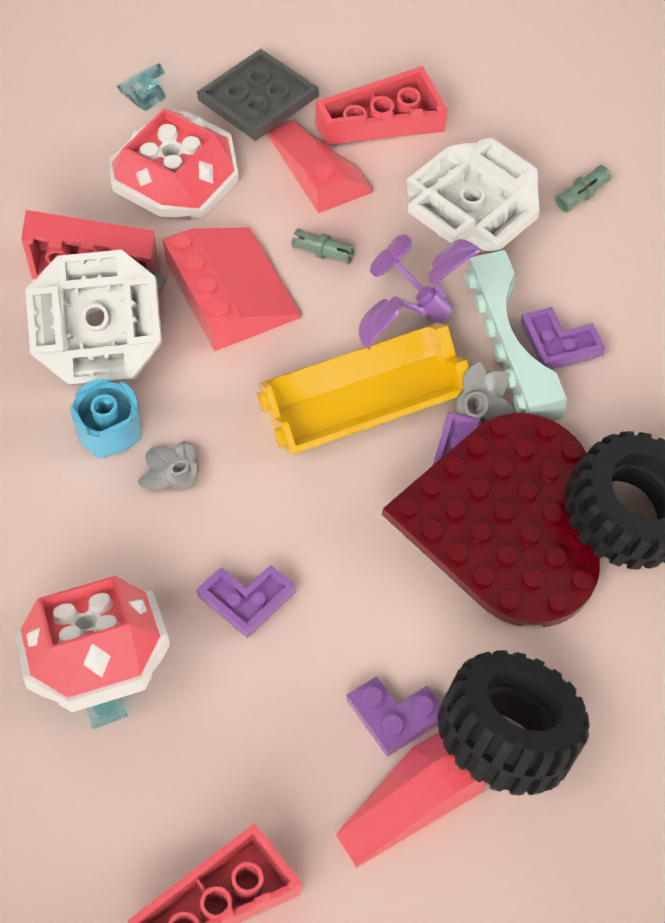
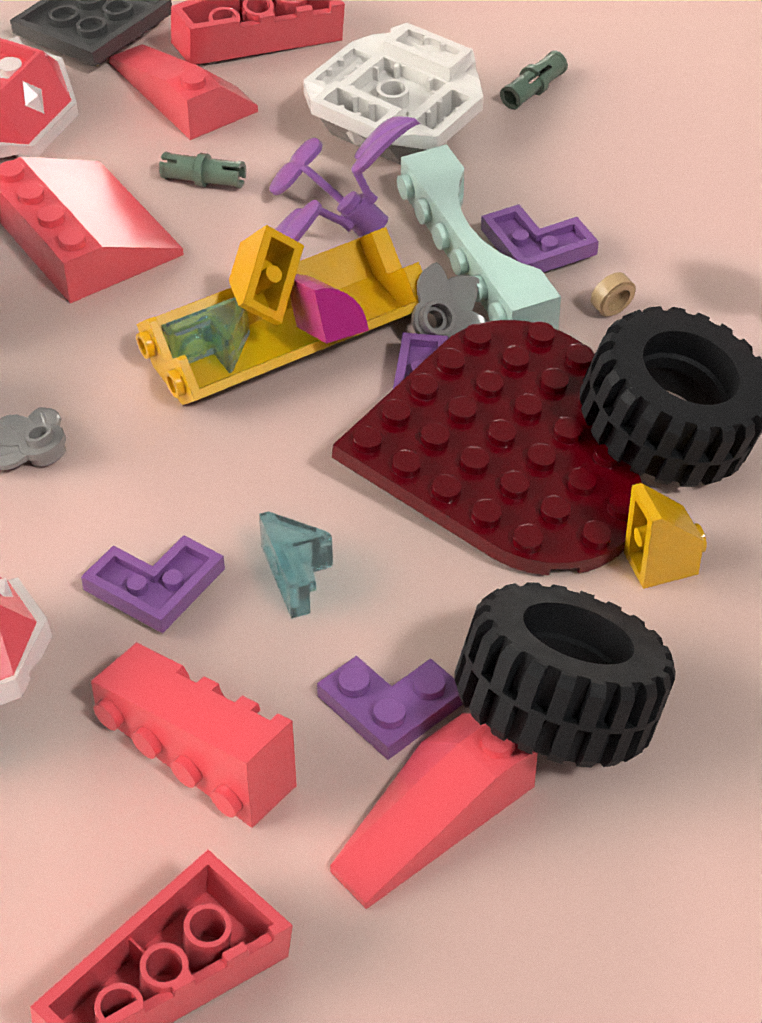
camera: 10 degrees left, 10 degrees down
(259, 724) = (199, 732): none -> coral wedge
(314, 395) = (210, 331): none -> clear light blue slope
(343, 589) = (293, 555): none -> clear light blue slope
(353, 360) = (265, 273): none -> yellow slope
(393, 390) = (325, 310): none -> dark pink brick
(605, 613) = (661, 538): none -> yellow slope
(608, 395) = (613, 294): none -> tan tile

